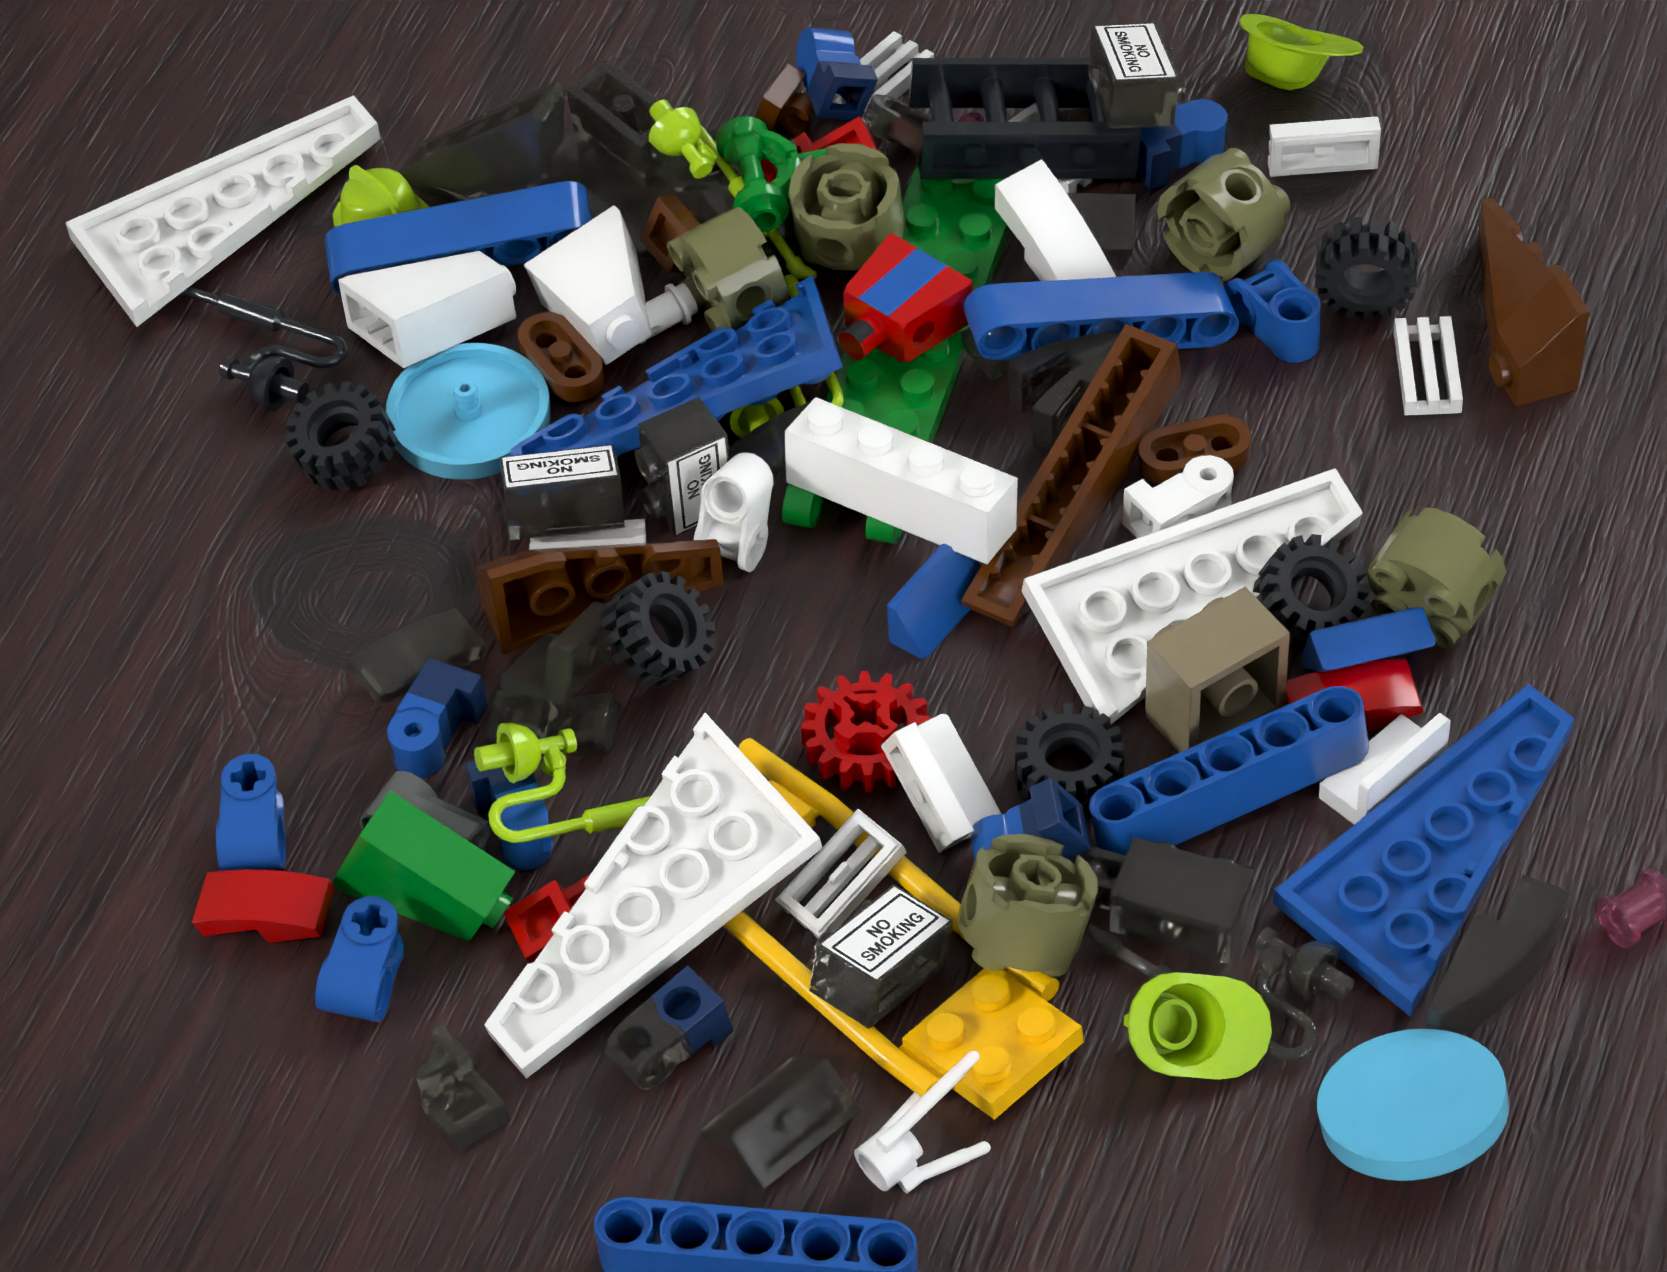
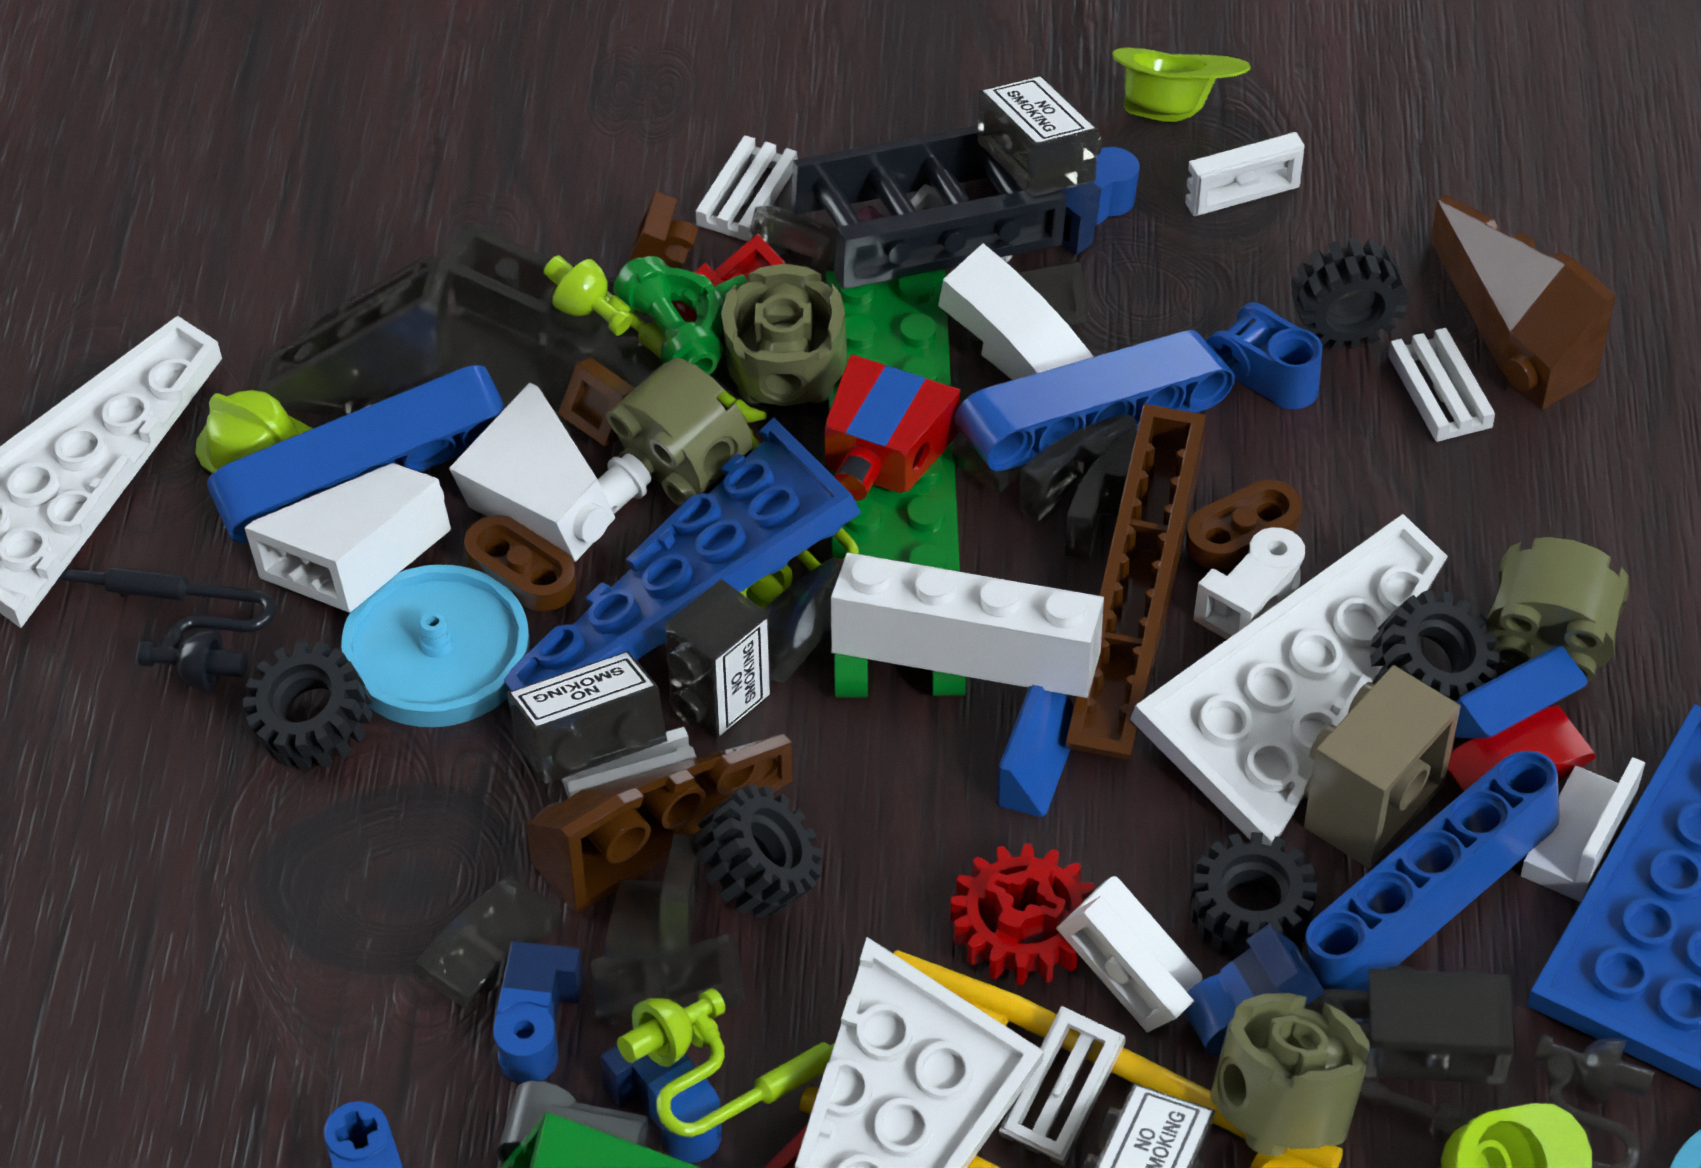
camera: 20 degrees left, 0 degrees up
(737, 509) = (788, 701): white piece -> none
(833, 69) = (708, 192): leg -> none
(1223, 215) = (1181, 266): olive brick -> none

